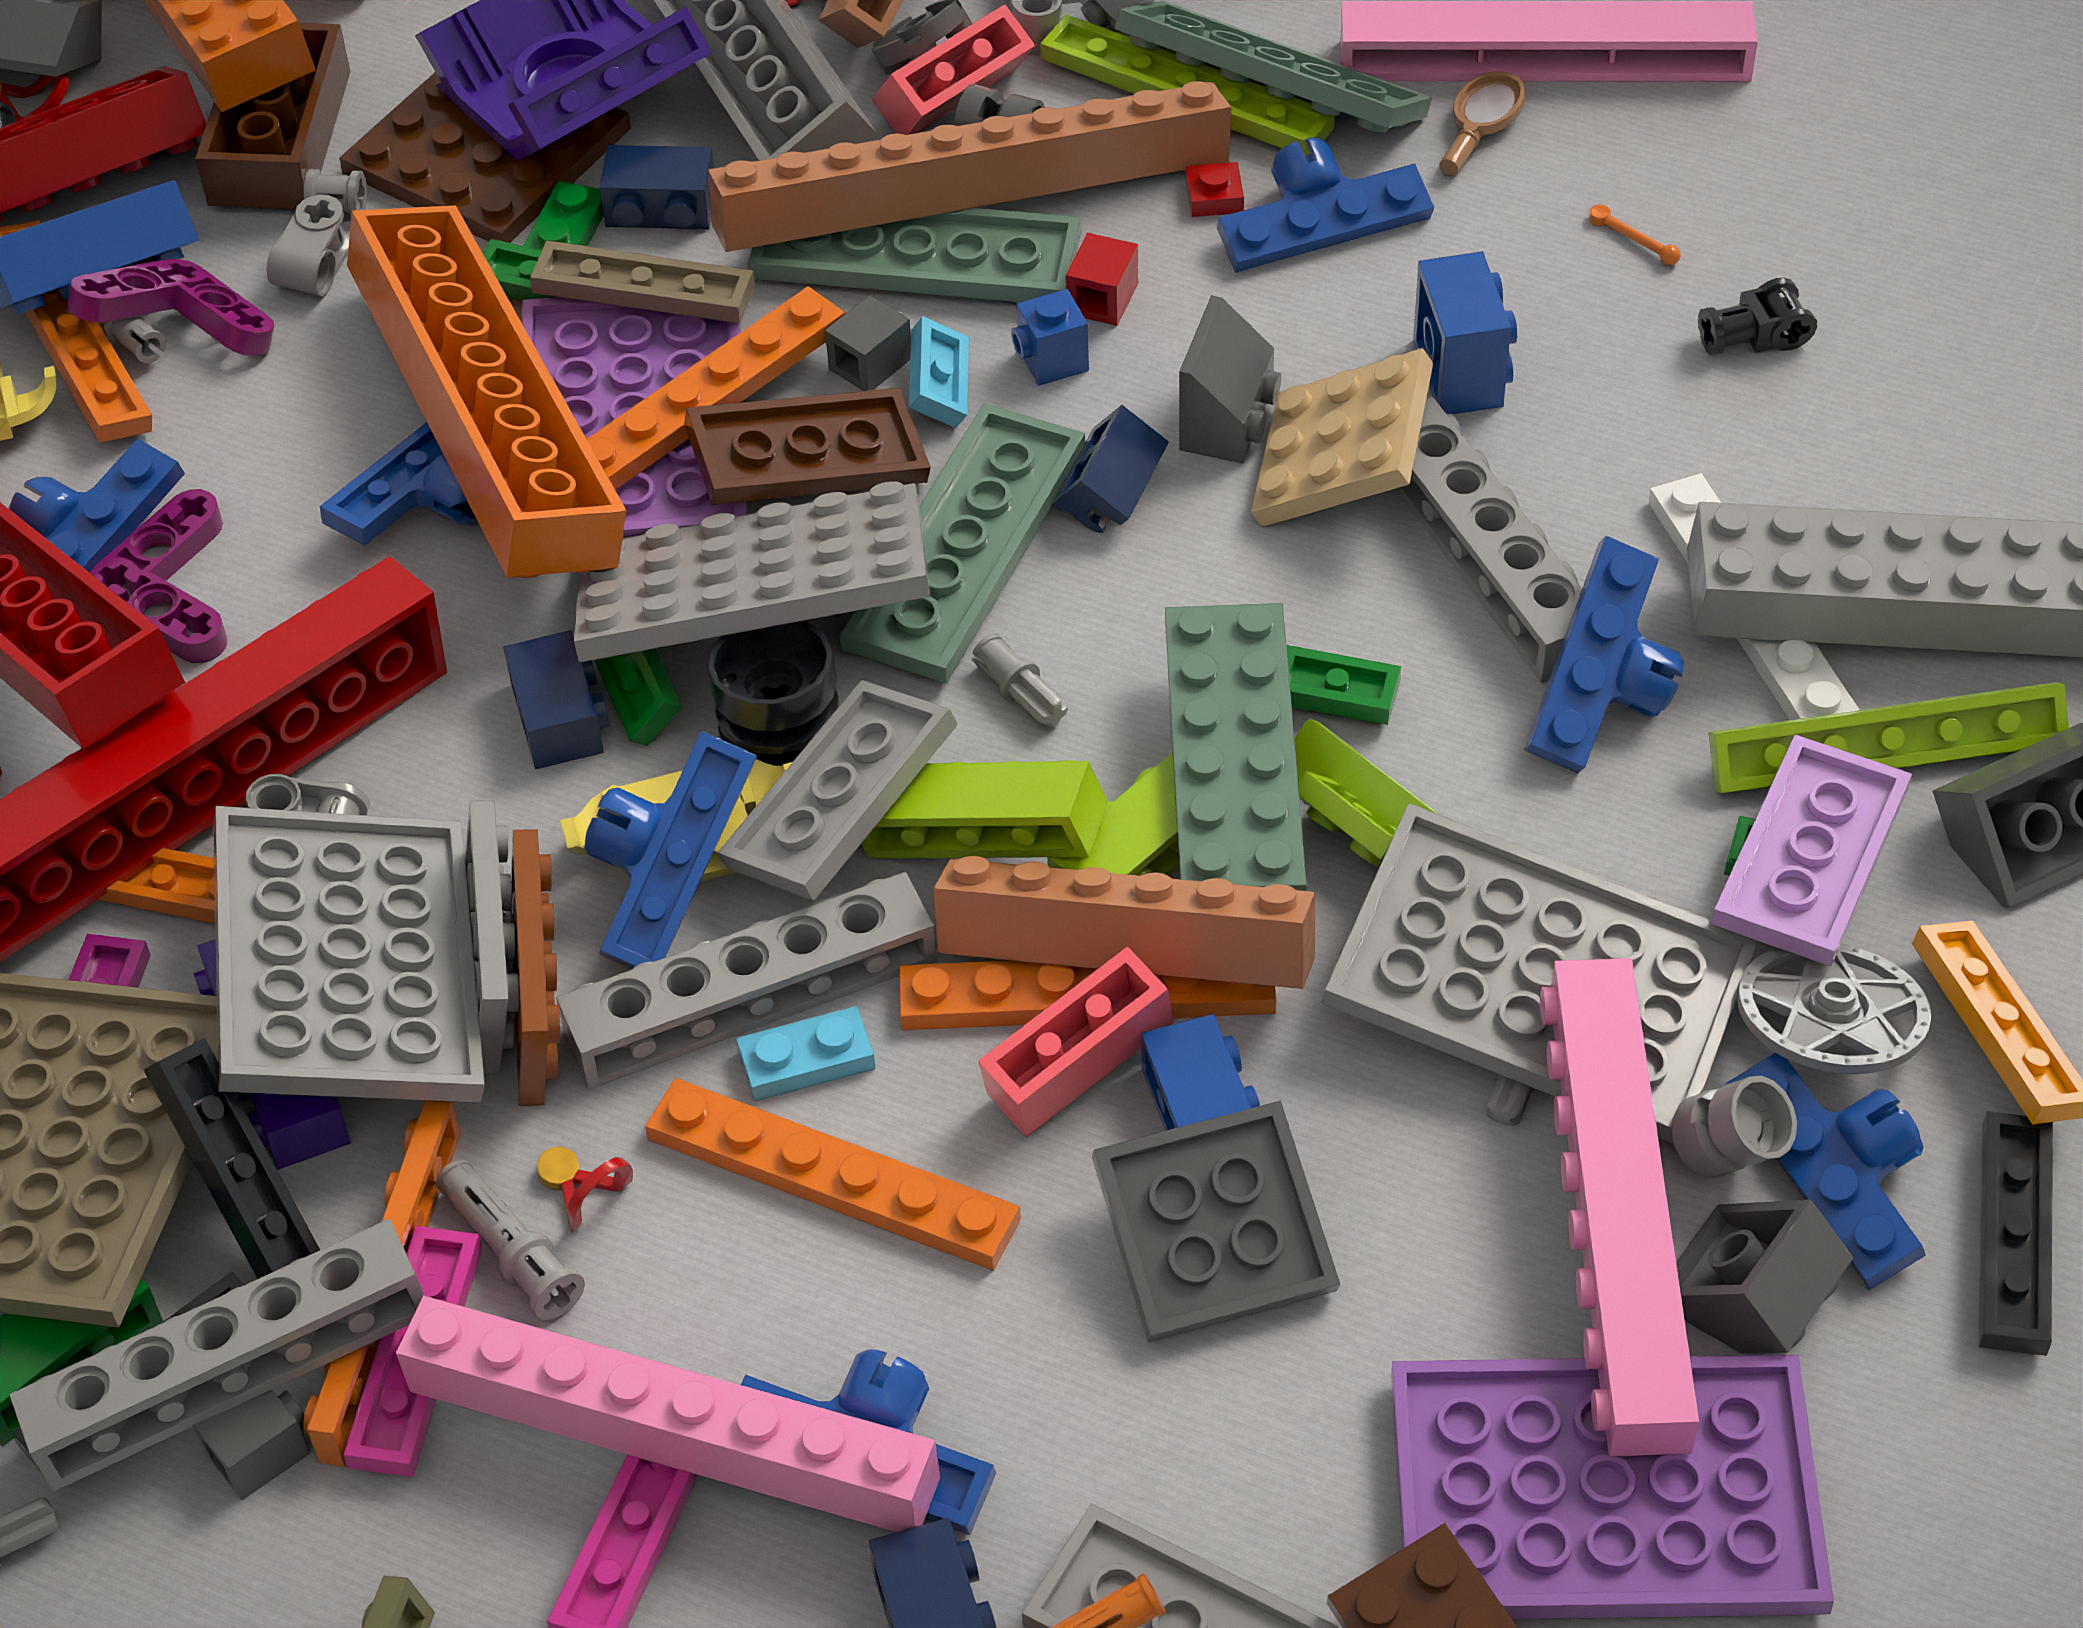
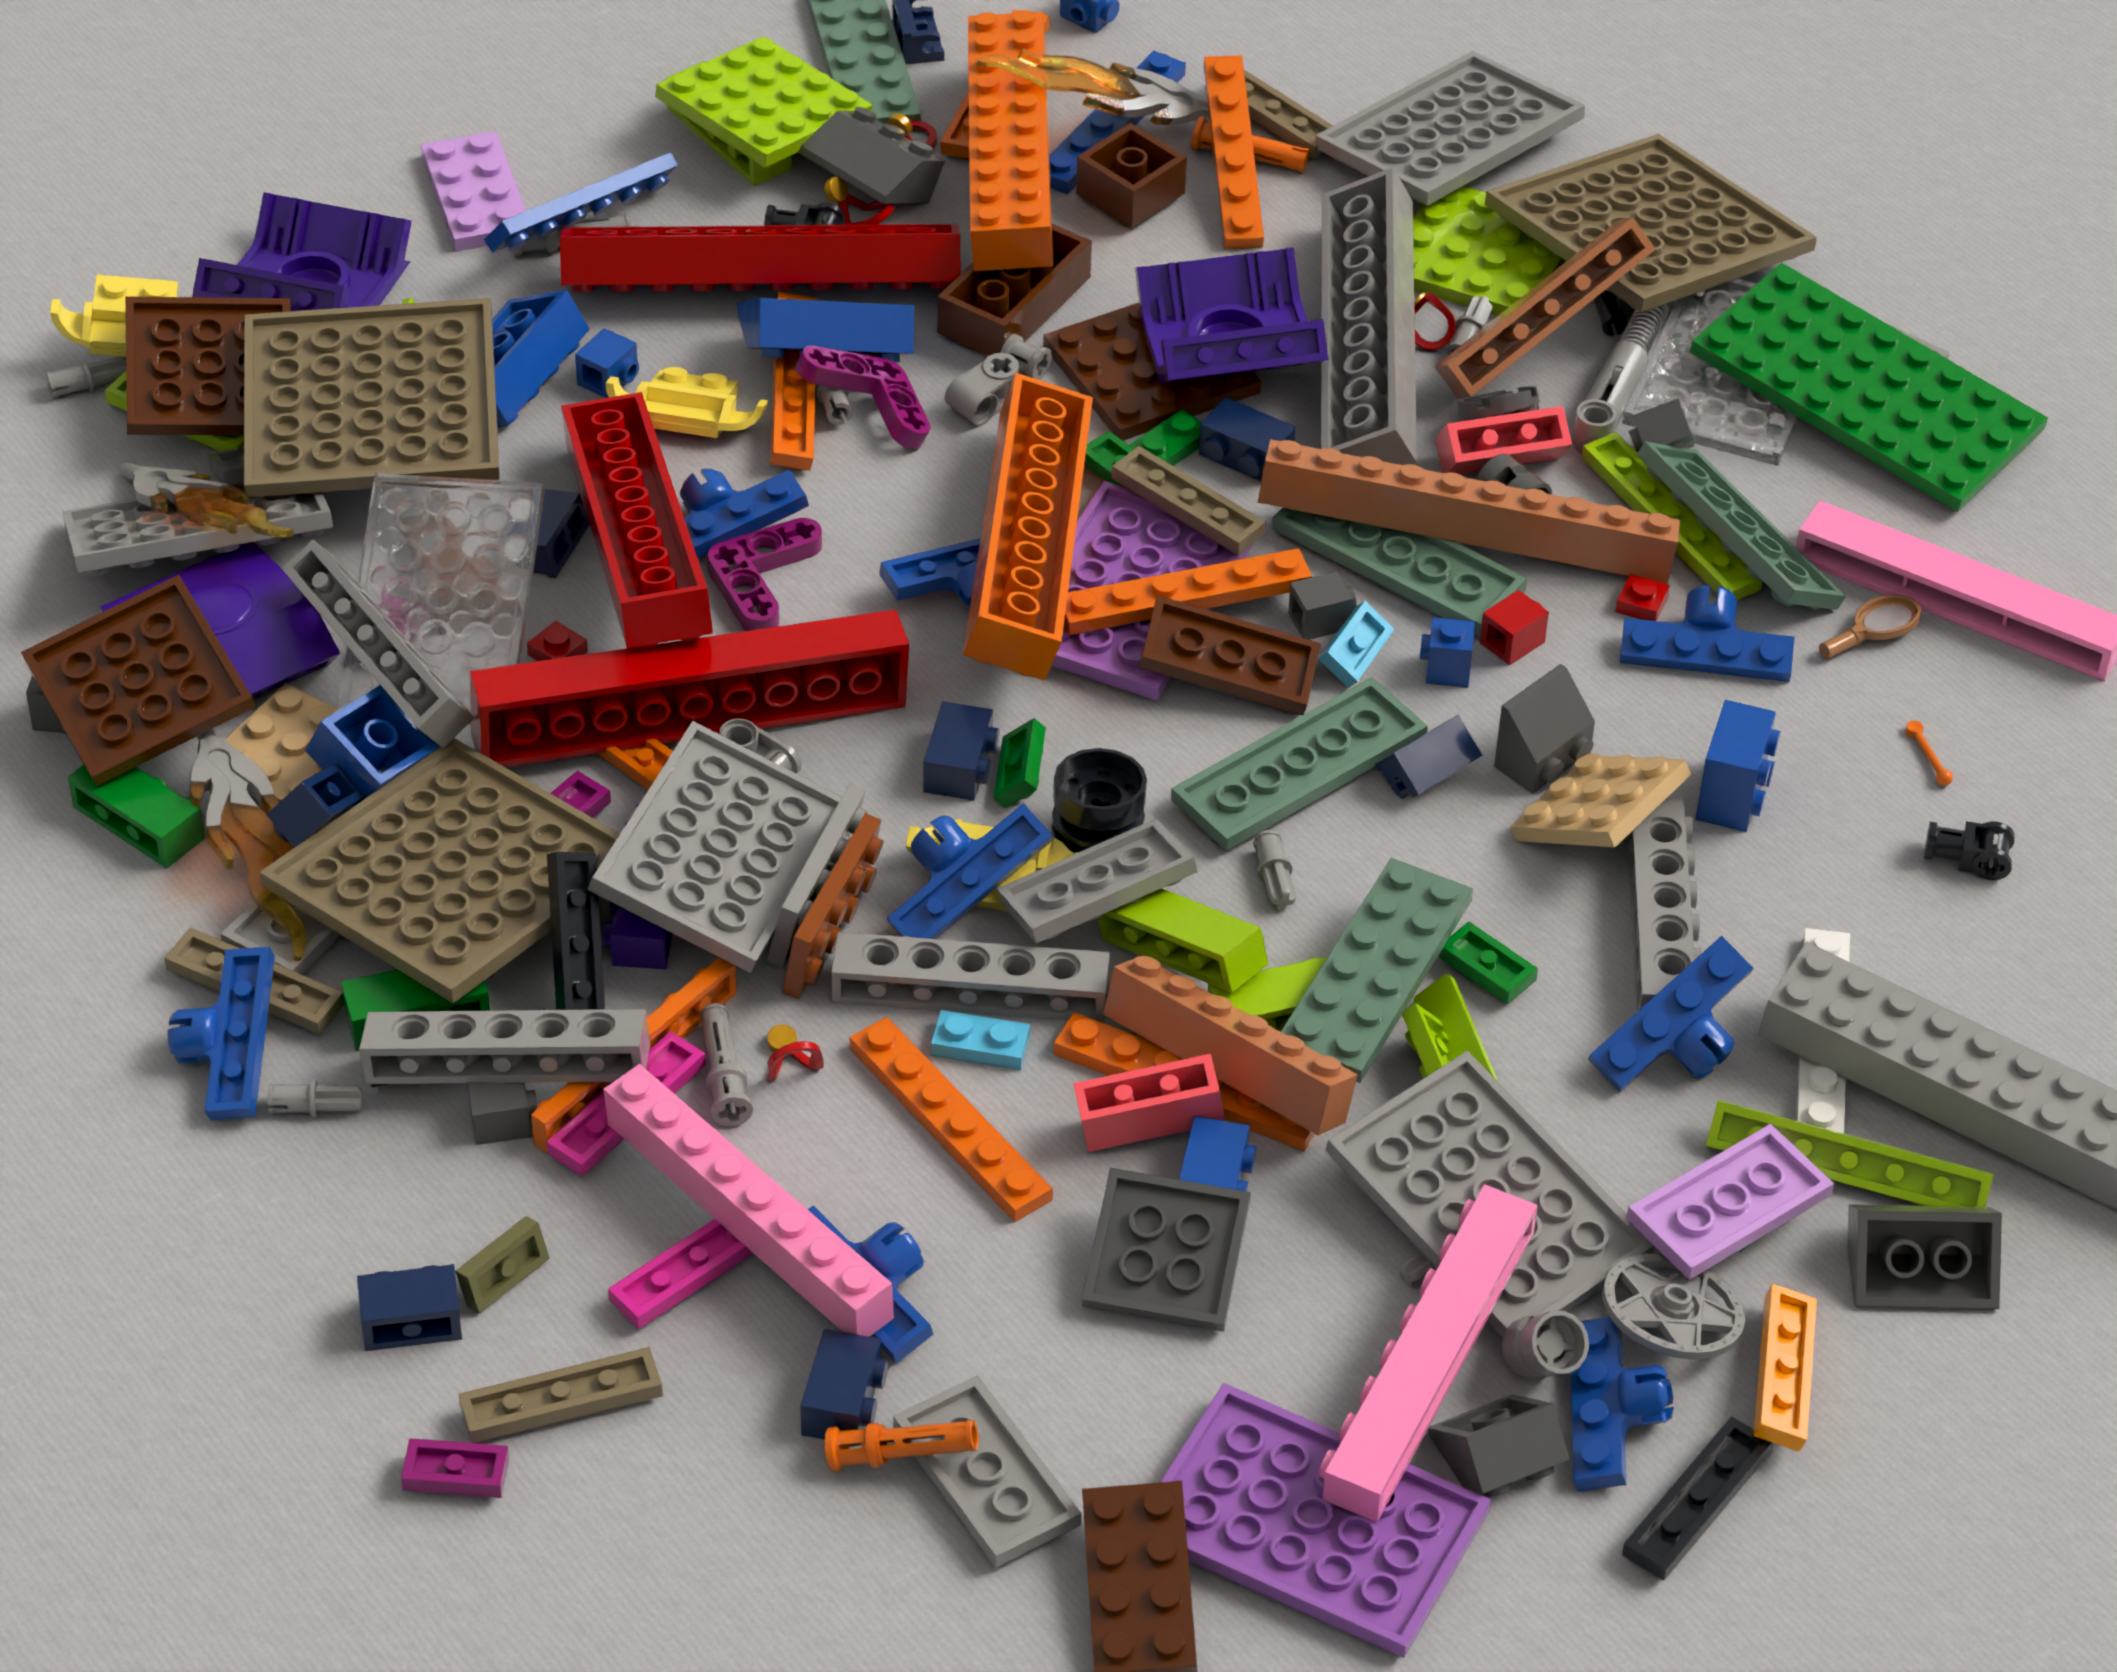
camera: 25 degrees right, 5 degrees down
(755, 571) = (1134, 719): light grey plate -> none

